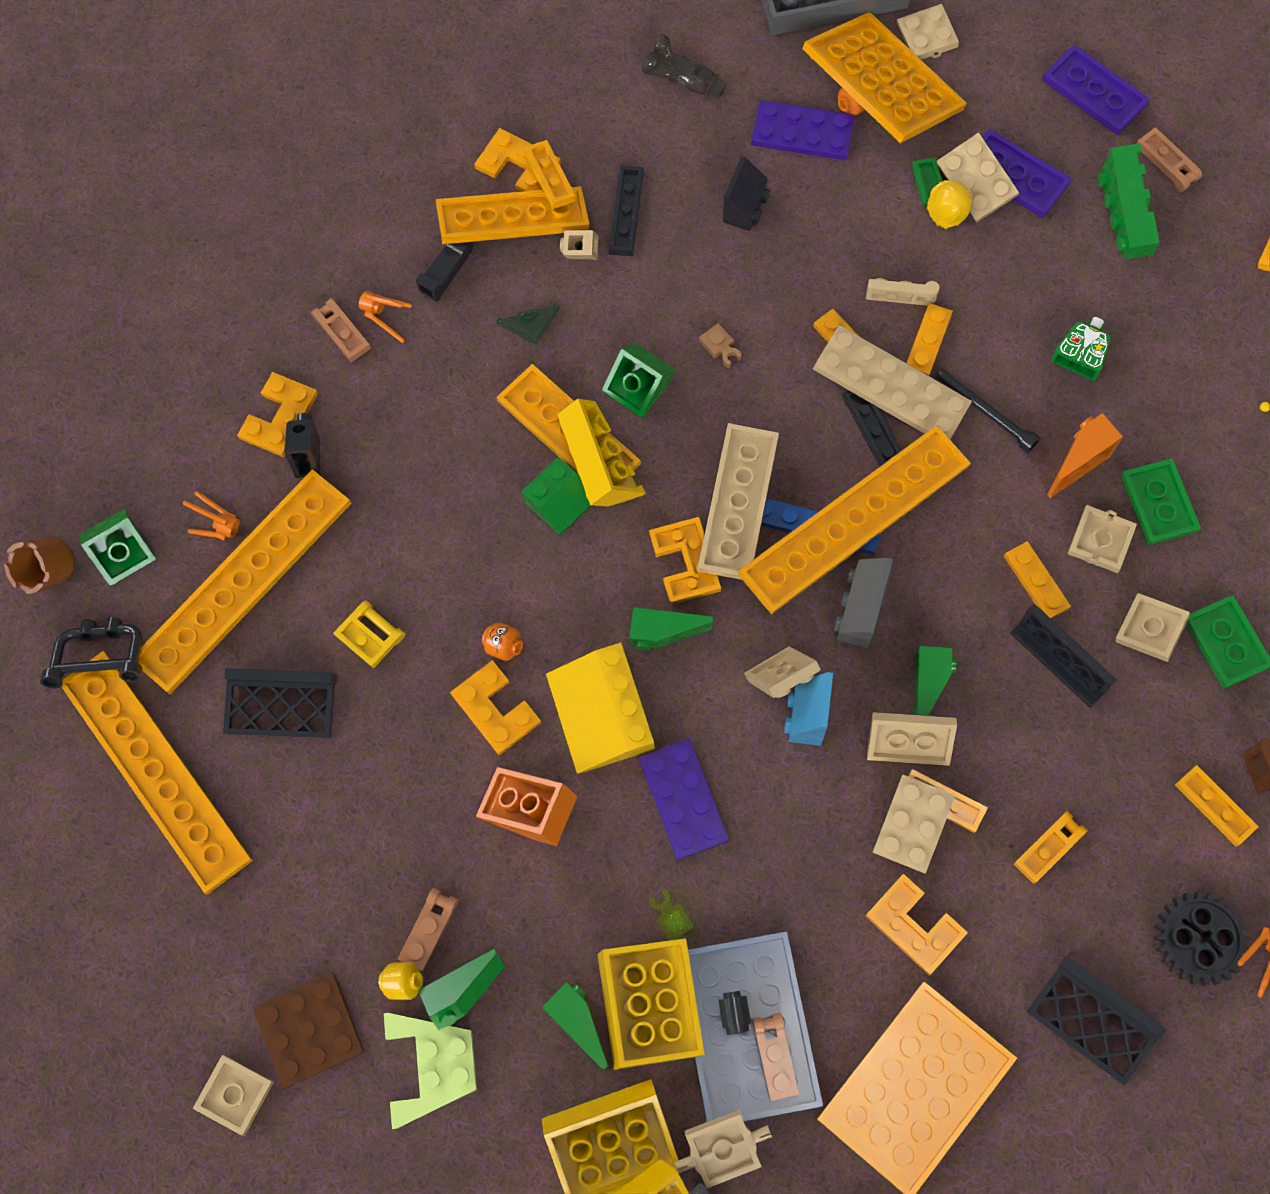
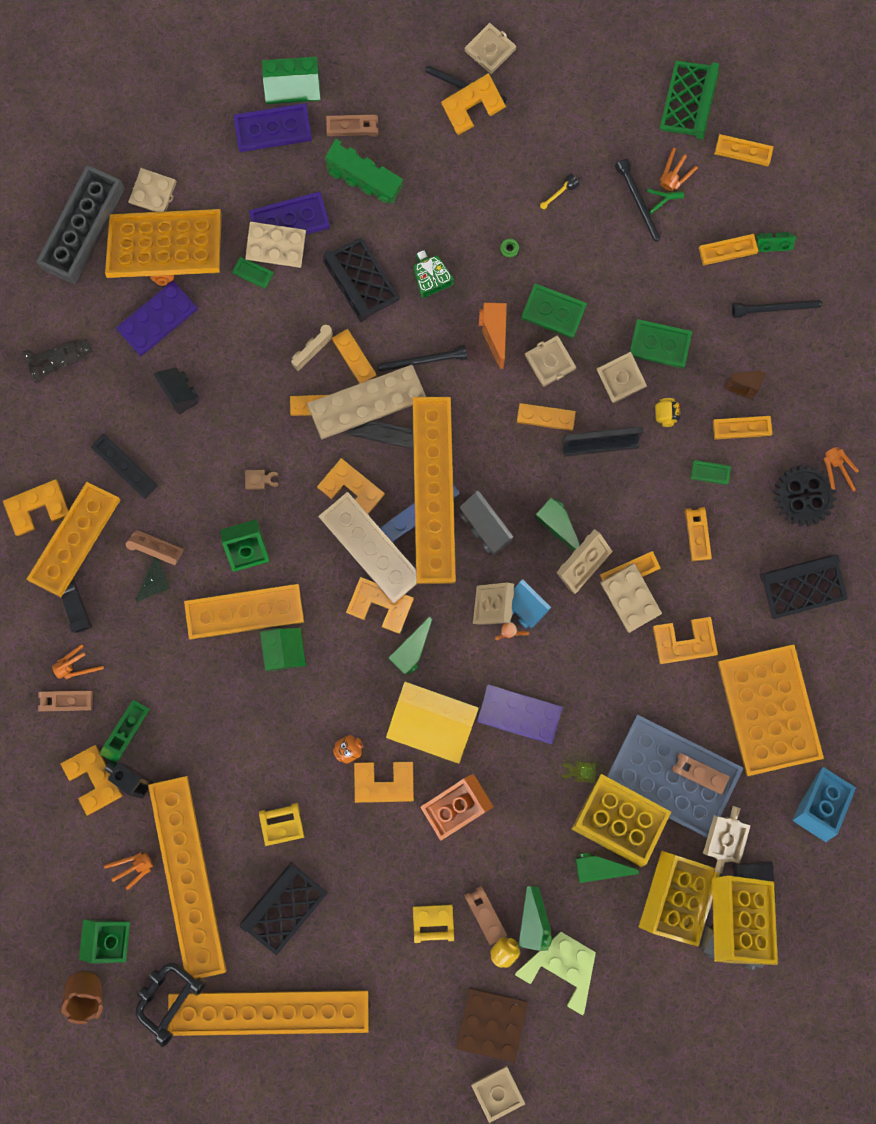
camera: 55 degrees left, 10 degrees up
(350, 406) = (124, 731): none -> green slope
(385, 872) = (433, 916): none -> yellow plate
(549, 174) = (65, 495): light orange plate -> none
(565, 296) = (154, 547): none -> nougat plate
(572, 238) = (122, 520): tan brick -> none
(597, 455) = (277, 608): yellow wedge -> none
(735, 1013) = (662, 778): black brick -> none
(766, 715) = (509, 630): none -> orange plant
(795, 423) = (345, 475): none -> light orange plate
(949, 203) = (279, 274): yellow hair -> none
(995, 282) = (349, 289): none -> black fence
(1133, 809) = (710, 472): none -> green tile
(1159, 706) = (667, 412): none -> yellow head
(1161, 69) = (291, 80): none -> slope
(1190, 400) = (509, 242): none -> bright green plate

